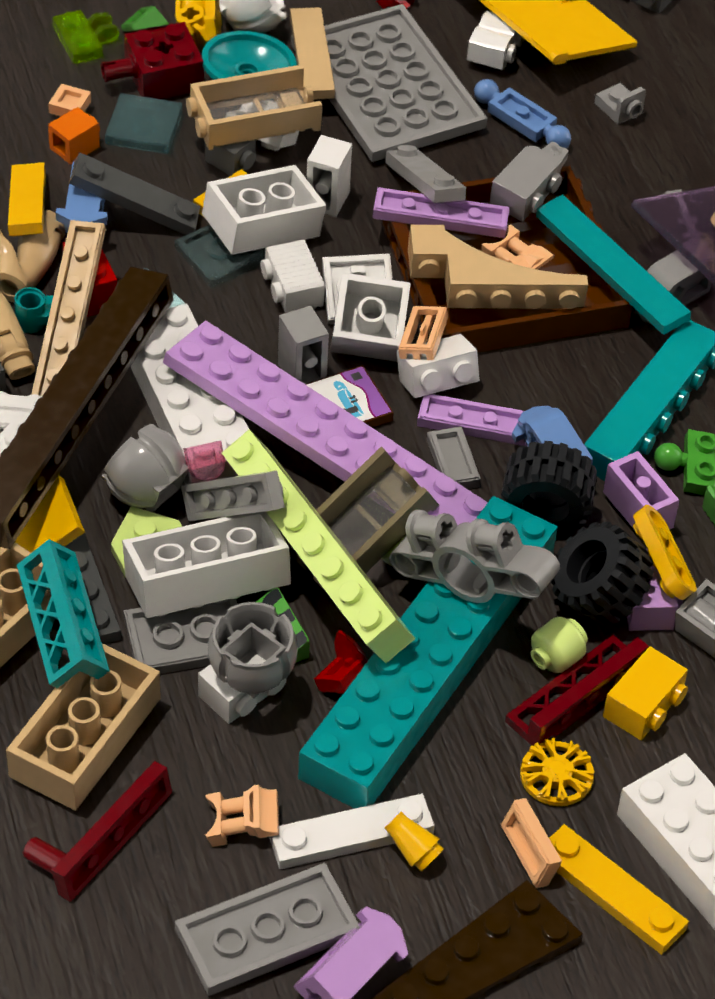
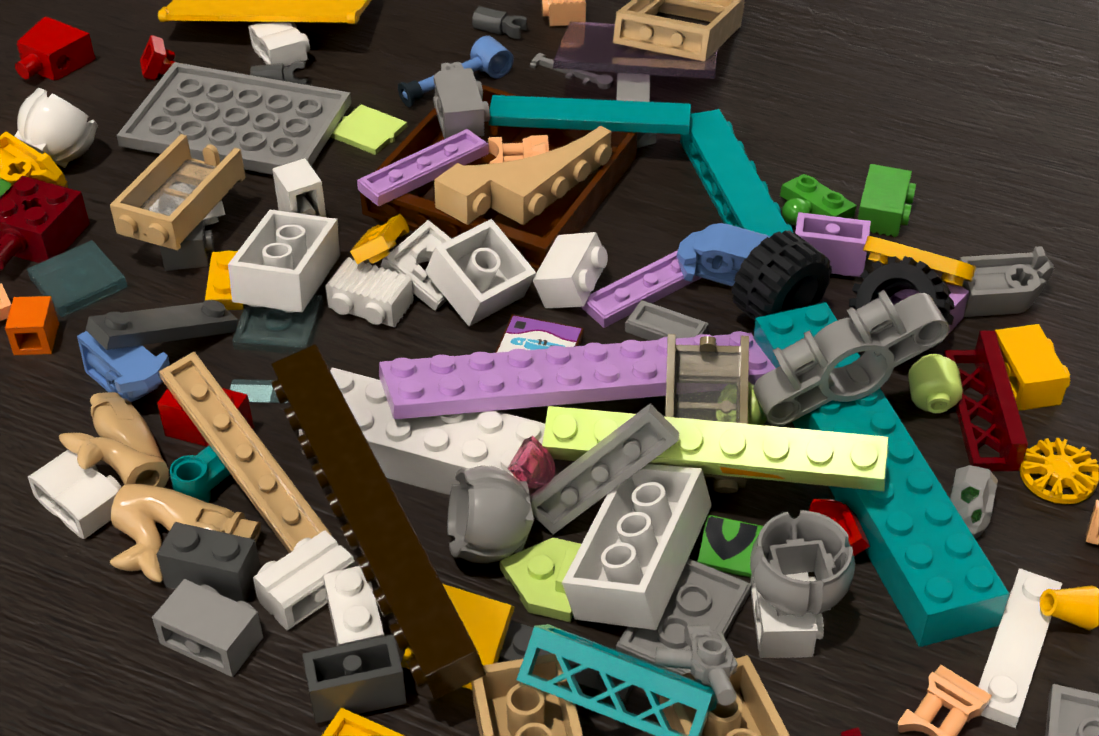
camera: 45 degrees left, 5 degrees down
(27, 199) = (67, 398): yellow tile -> none
(121, 647) = (708, 659): none -> light grey piece
(244, 53) = (107, 169): teal dish -> none
(303, 345) = (464, 322): light grey brick -> none
(312, 50) = (148, 128): tan tile -> none
(340, 242) = (379, 239): none -> yellow plate
(425, 174) = (400, 147): light grey plate -> none
(430, 349) = (553, 263): light nougat tile -> none
(459, 733) = (974, 497): none -> light grey rock
(463, 66) = (279, 72): none -> dark grey bar
(471, 157) = (368, 129): none -> yellowish green piece
(521, 113) = (366, 76): medium blue plate -> none
(621, 103) = (420, 28): light grey bracket -> none
(629, 166) = (485, 55): none -> medium blue piece
(685, 141) = (498, 22): none -> dark grey bar

